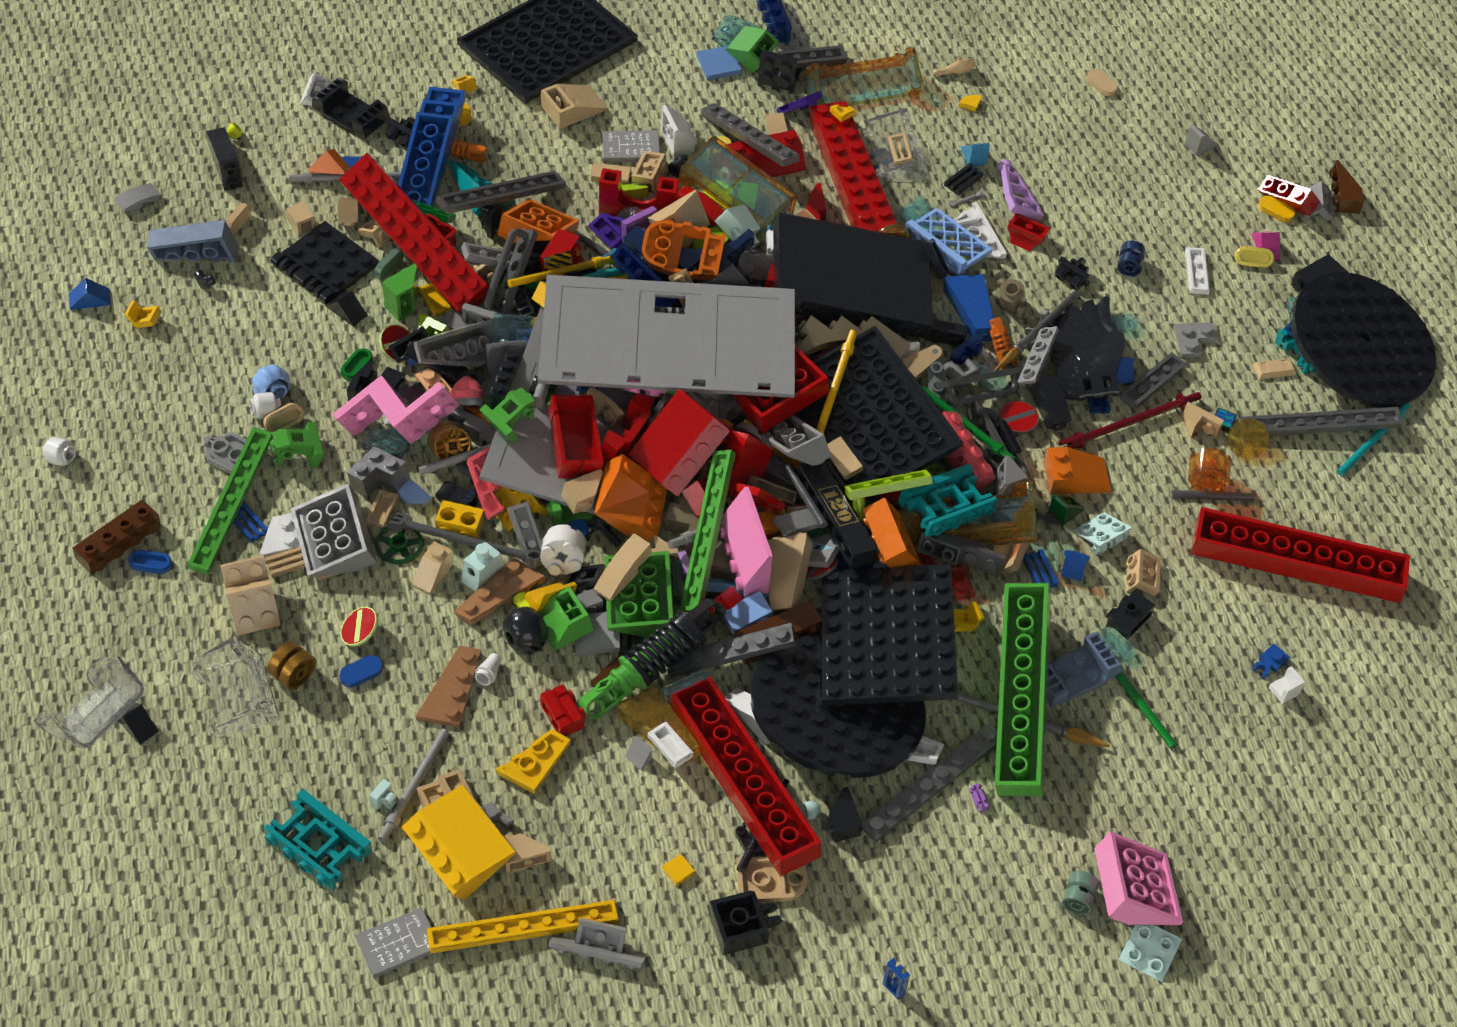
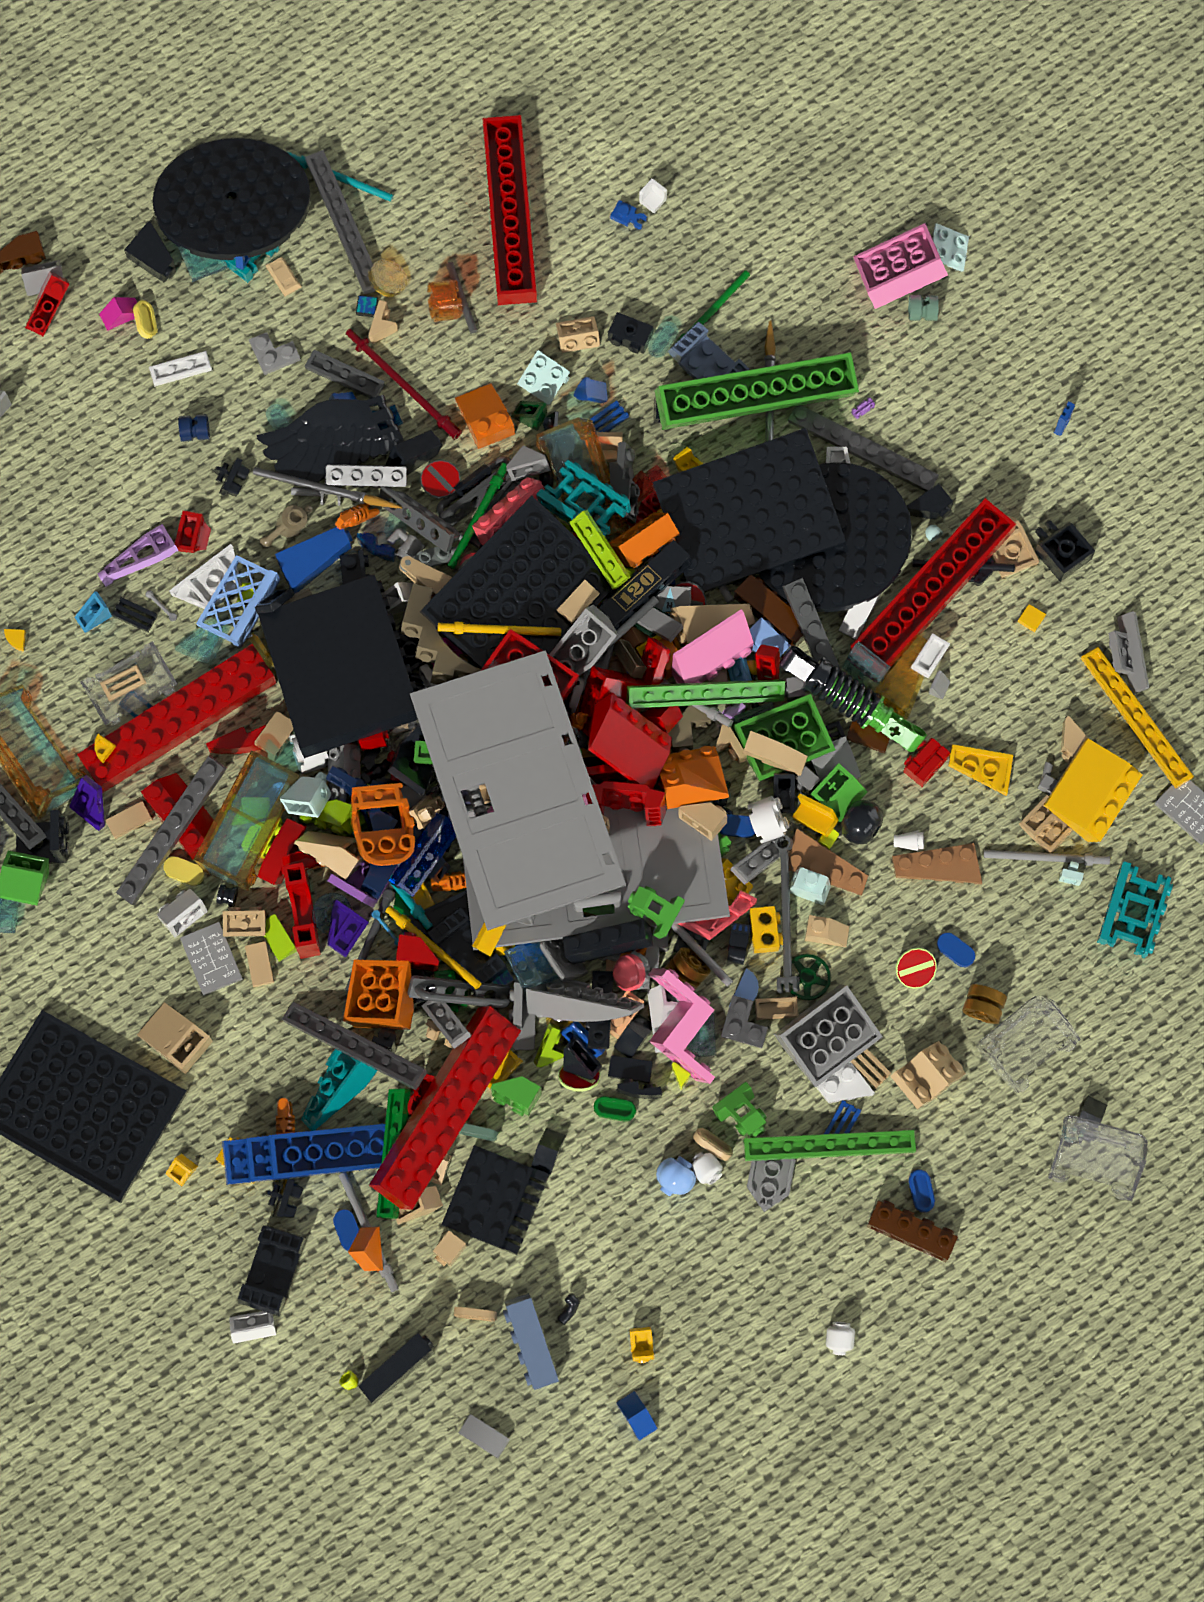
camera: 105 degrees left, 20 degrees up
(575, 435) = (653, 843): red piece -> none
(718, 63) = (50, 914): medium blue tile -> none
(1276, 208) = (65, 313): yellow tile -> none

